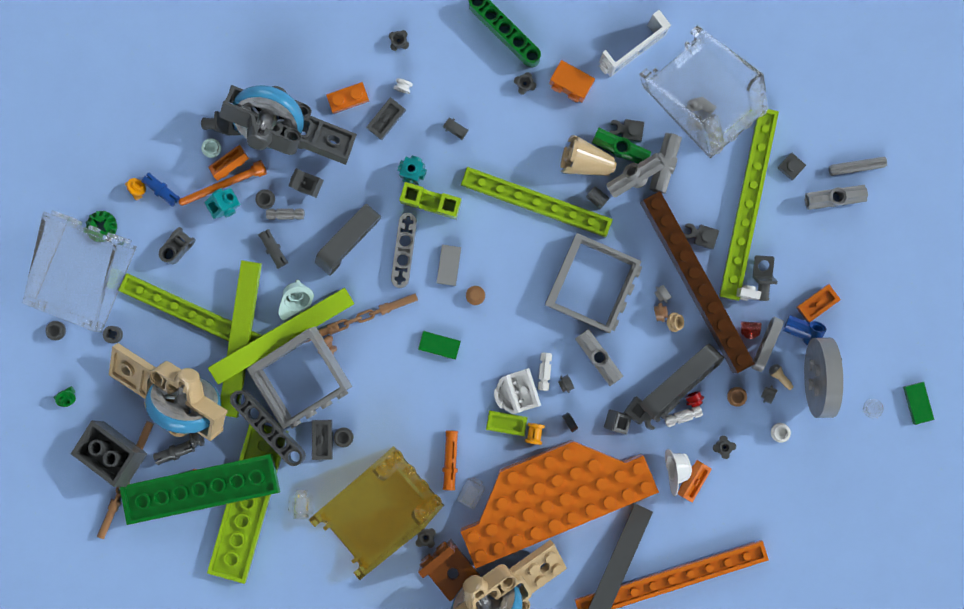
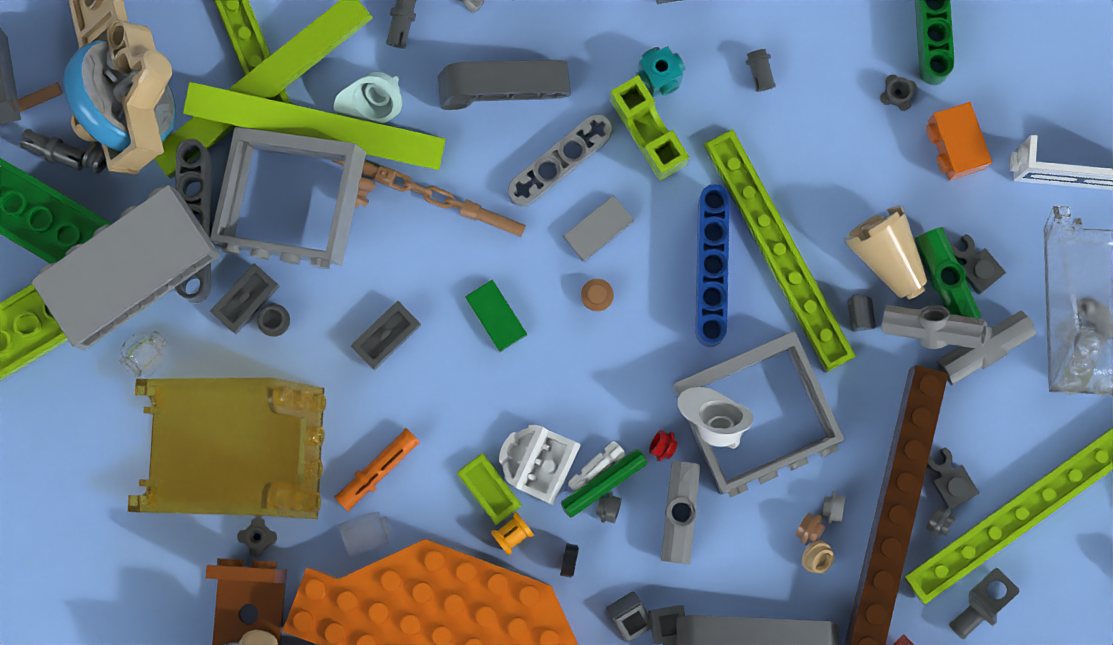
camera: 40 degrees right, 5 degrees down
(258, 476) = (125, 267): none -> light grey brick
(399, 398) = (386, 335): none -> dark grey plate
(512, 227) = (716, 250): none -> blue beam
(554, 375) = (603, 483): none -> green axle
(564, 335) = (663, 445): none -> red plate
(576, 302) = (716, 416): none -> white piece
(714, 258) = (941, 521): none -> dark grey plate
(748, 292) = (944, 603): white plate -> none

